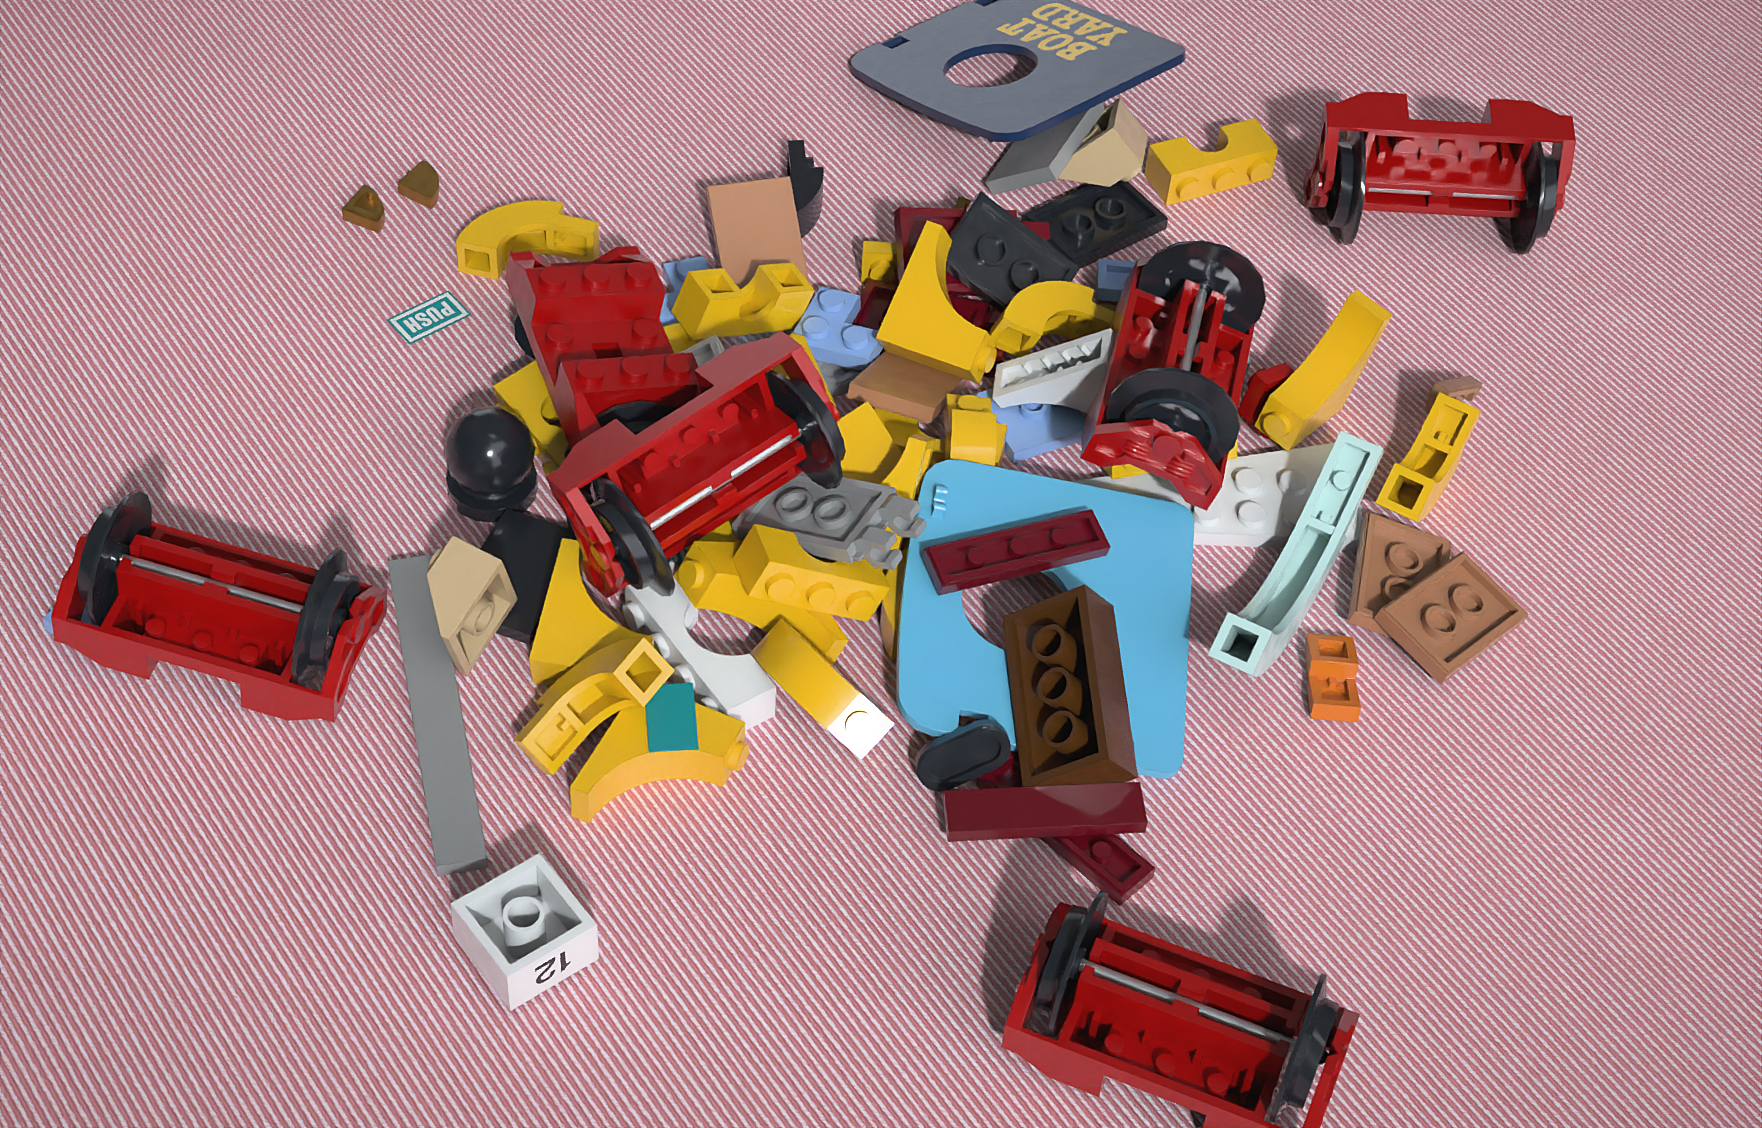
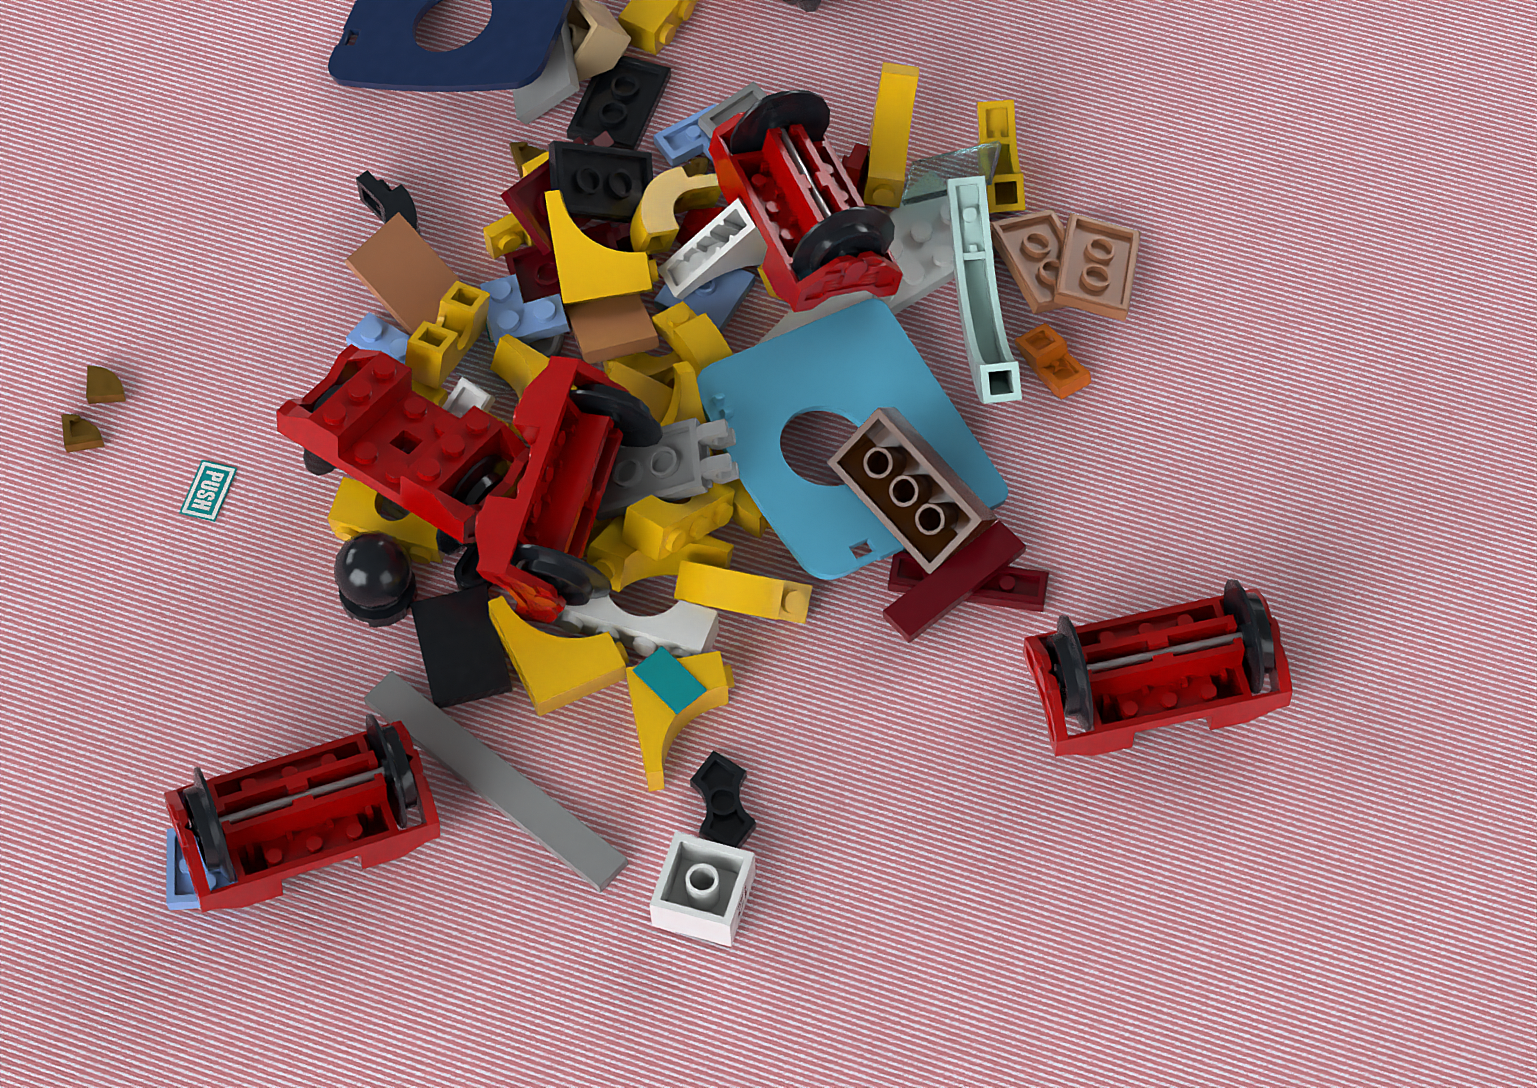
camera: 30 degrees left, 10 degrees up
(469, 599) = (460, 689): tan slope -> none
(524, 226) = (222, 374): yellow arch -> none
(589, 693) = (600, 700): yellow arch -> none
(617, 888) = (720, 786): none -> black tile
(963, 755) = (873, 577): black tile -> none
(1015, 552) = (799, 409): dark red tile -> none
(1397, 447) = (929, 175): none -> clear light blue piece
(1457, 388) = (975, 91): medium nougat tile -> none

